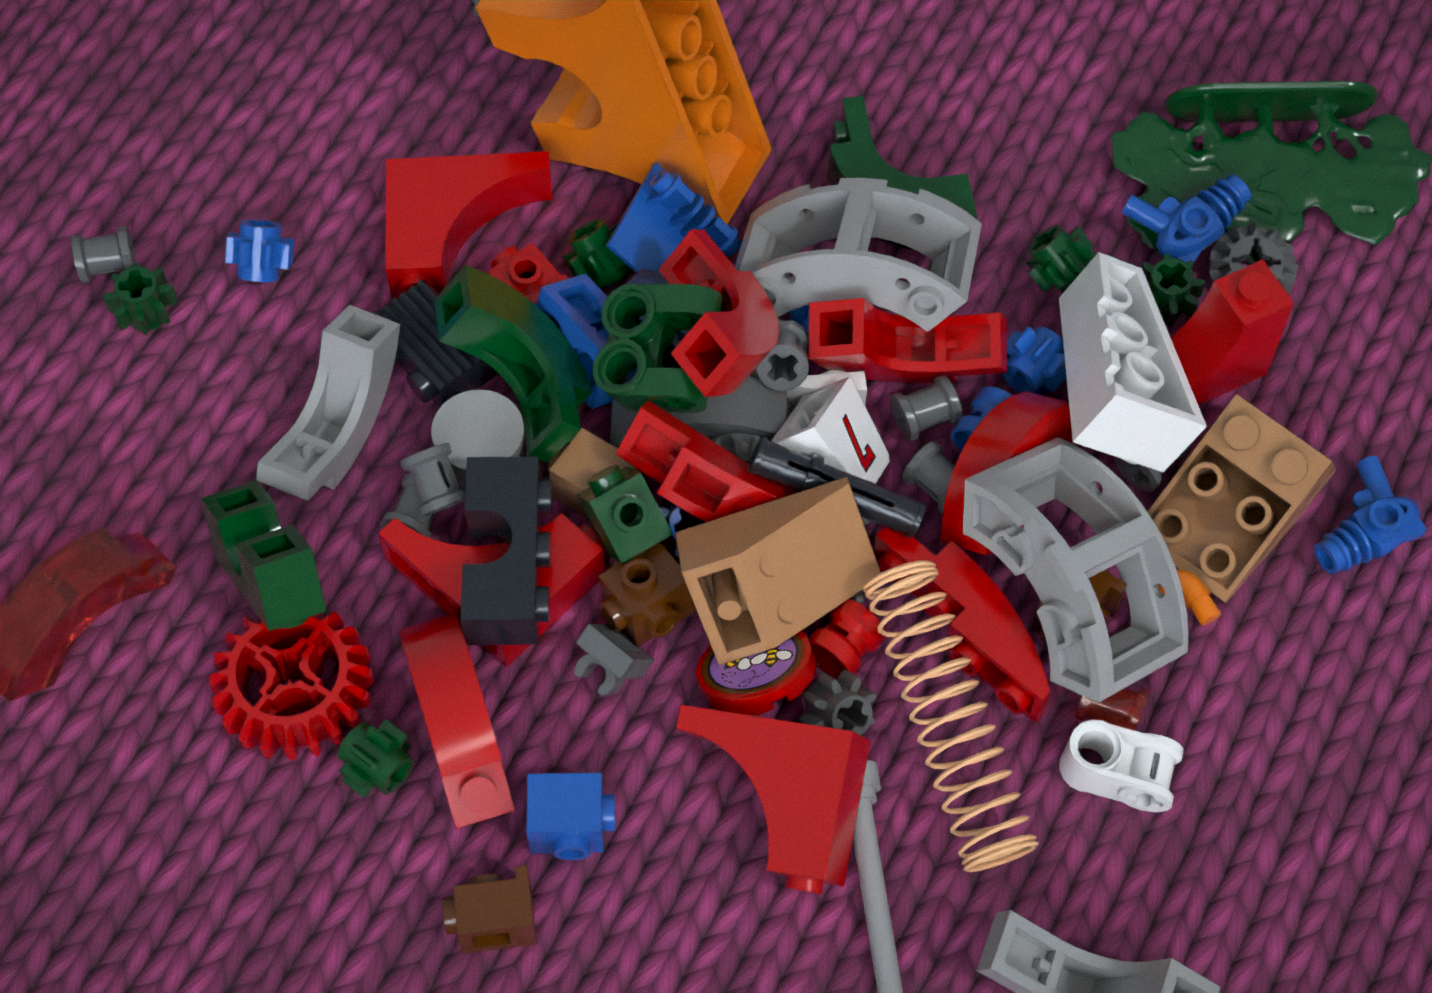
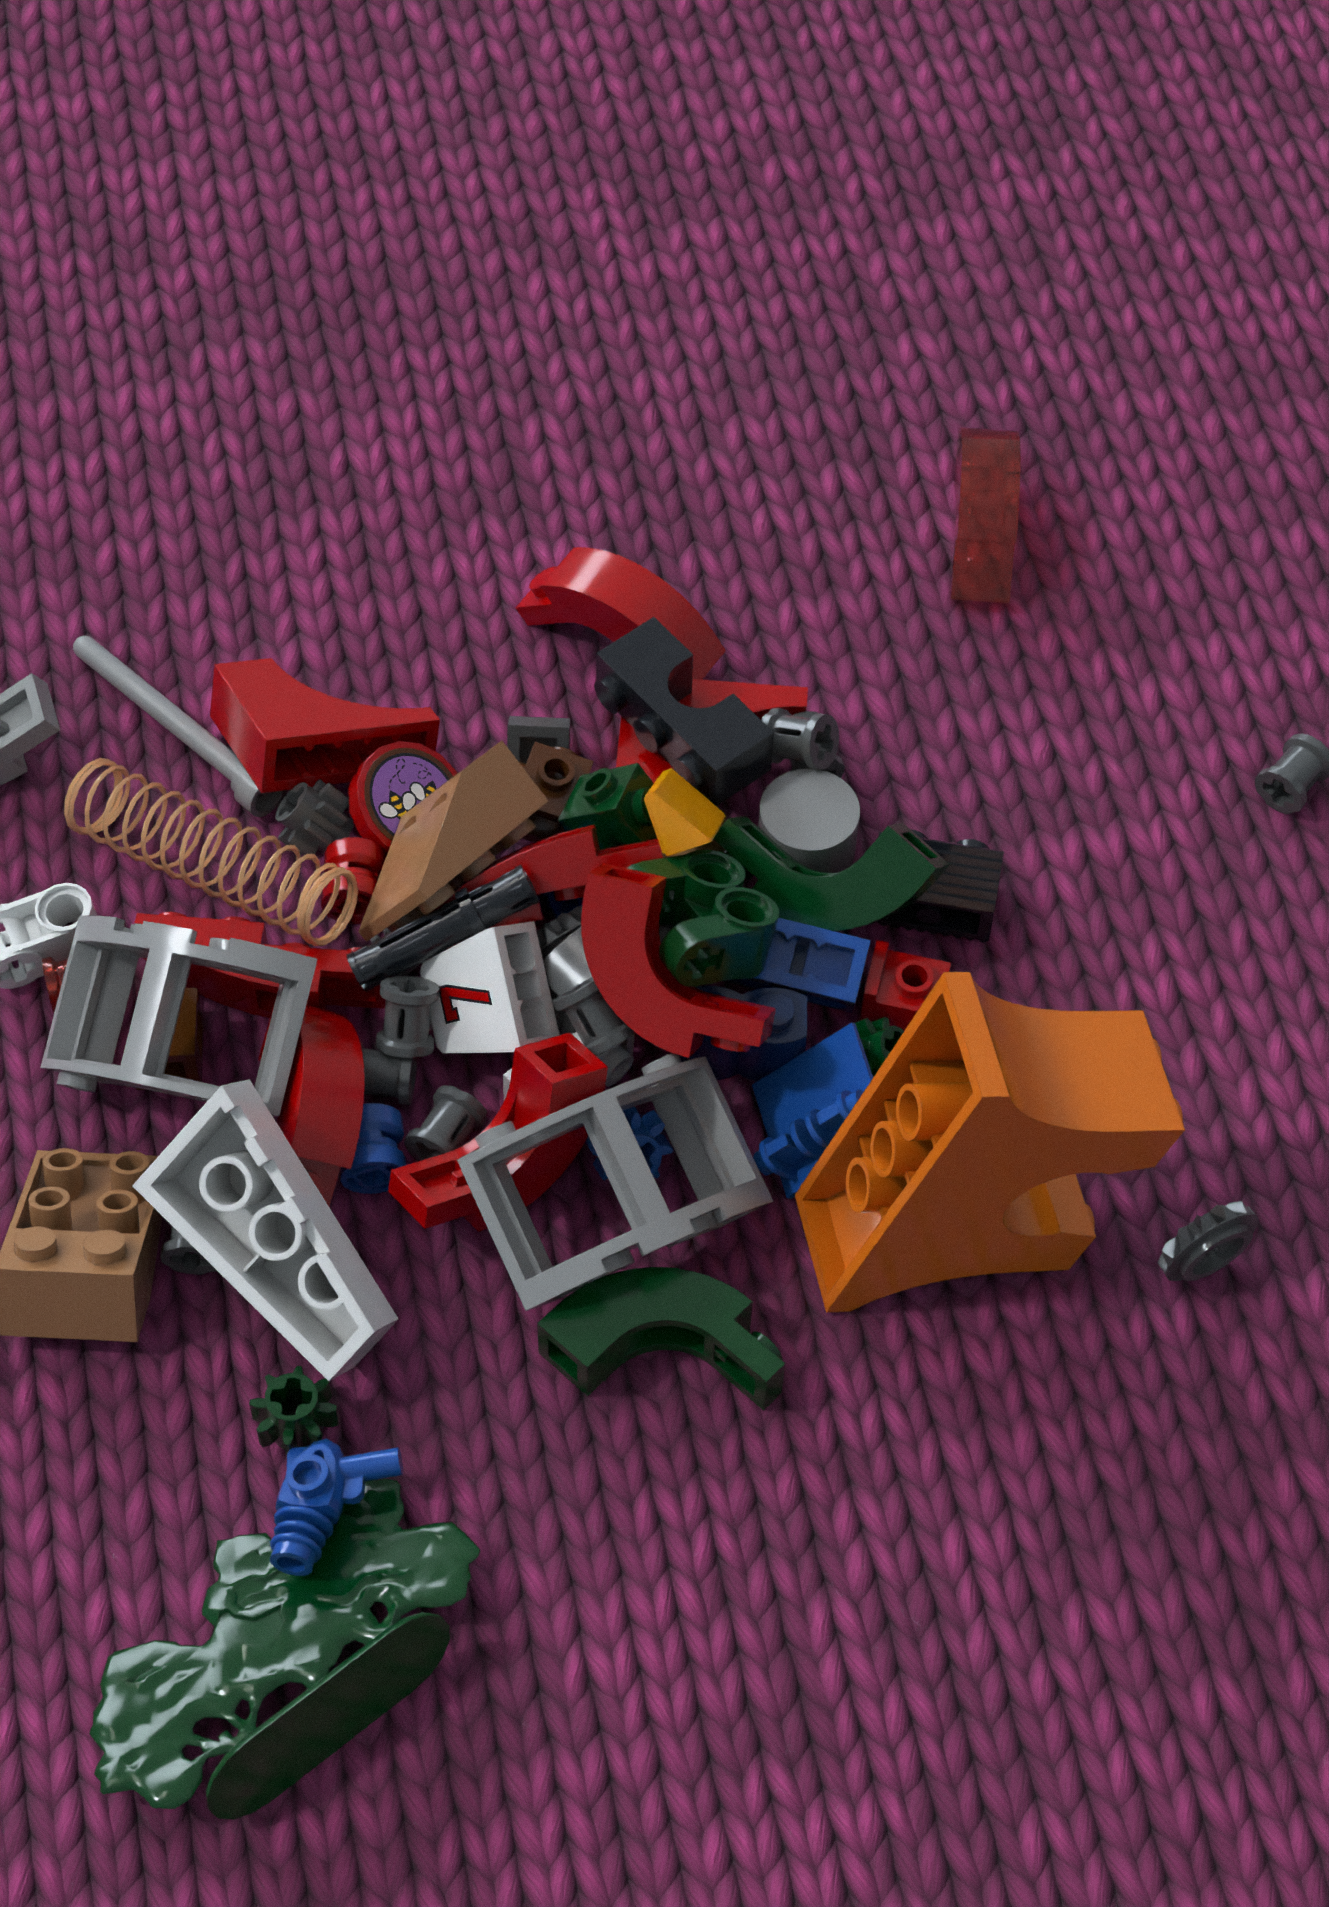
camera: 140 degrees right, 5 degrees down
(140, 298) = (1218, 757): dark green gear -> none
(259, 250) = (1169, 856): blue gear -> none
(264, 561) = (903, 625): dark green arch -> none
(270, 718) = (771, 574): red gear -> none
(341, 409) = (941, 757): light grey arch -> none
(375, 758) = (655, 552): dark green gear -> none
(444, 201) = (1055, 965): red arch -> none
(492, 912) = (462, 528): reddish brown brick -> none
(568, 814) = (469, 620): blue brick -> none
(593, 434) = (681, 814): none -> light orange slope
(919, 473) = (407, 1016): none -> dark grey bush
(1035, 361) = (379, 1232): blue gear -> none
(1058, 257) = (428, 1364): dark green gear -> none
(1196, 597) = (81, 1136): orange animal -> none
(1233, 332) = (191, 1359): red arch -> none
(1271, 248) = (209, 1538): dark grey gear -> none

